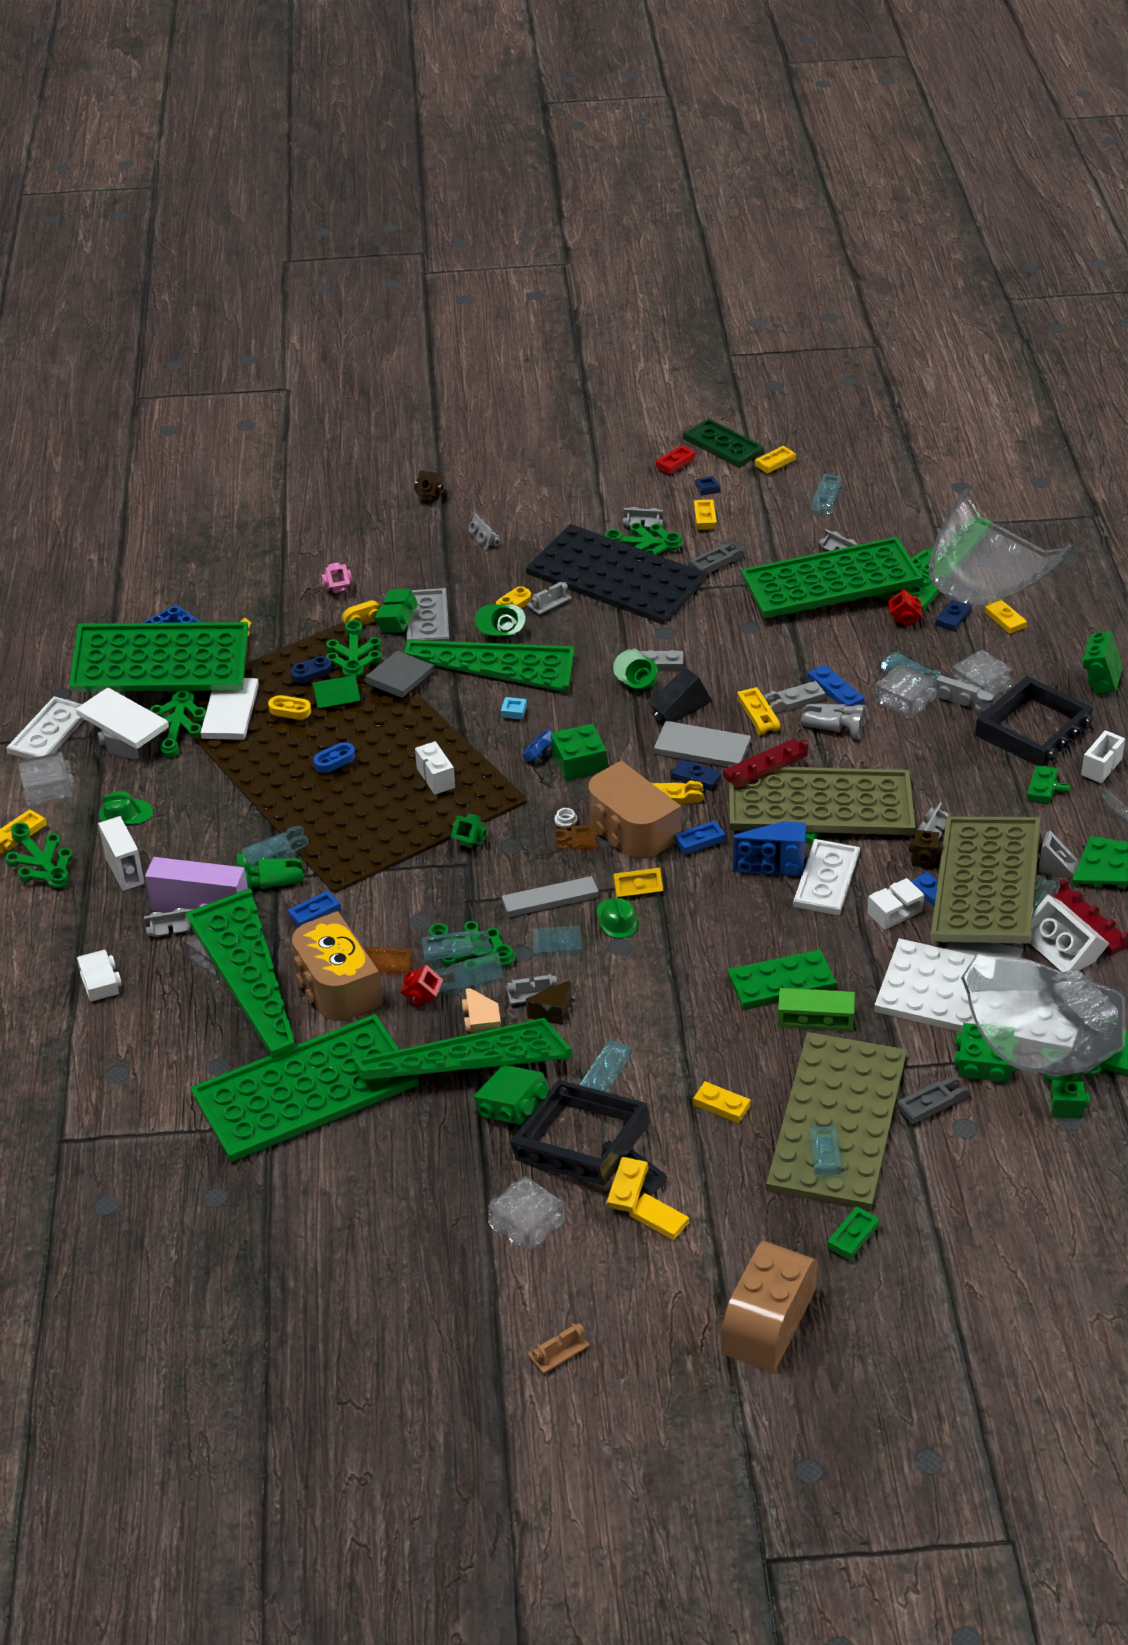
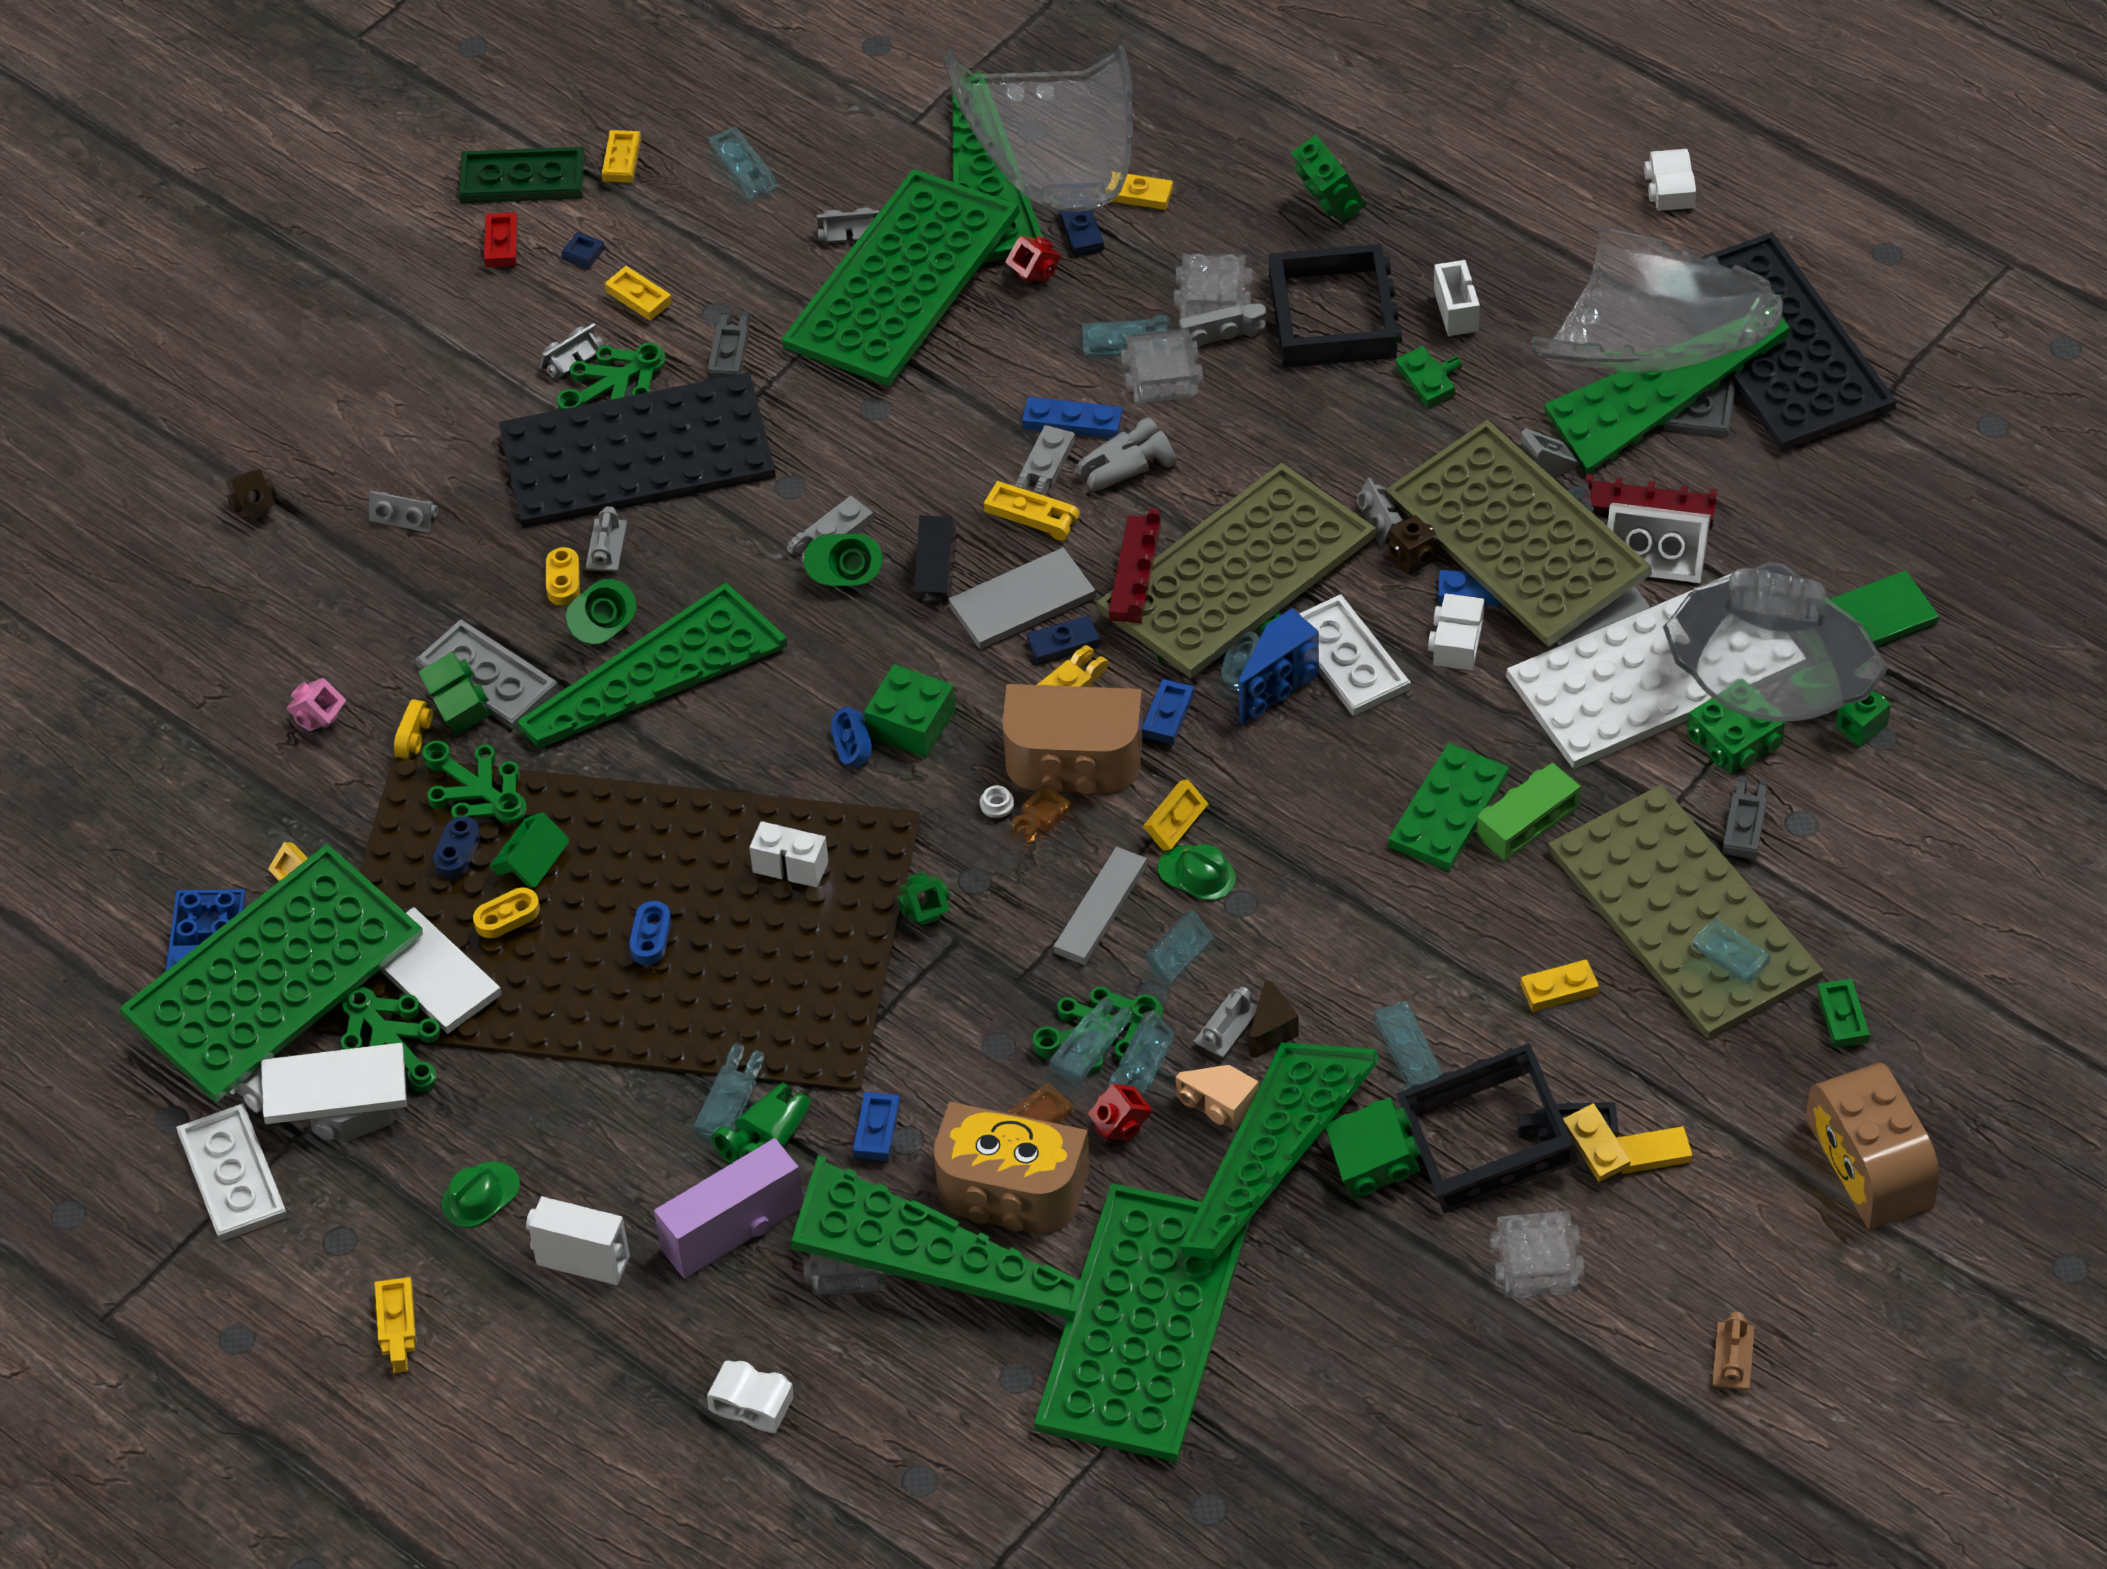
camera: 45 degrees left, 10 degrees up
(46, 778) = (338, 1231): clear brick -> none
(55, 876) = (480, 1326): green plant -> none
(158, 922) = (730, 1285): light grey hinge -> none
(399, 674) = (571, 771): dark grey tile -> none
(513, 708) = (758, 713): medium azure plate -> none

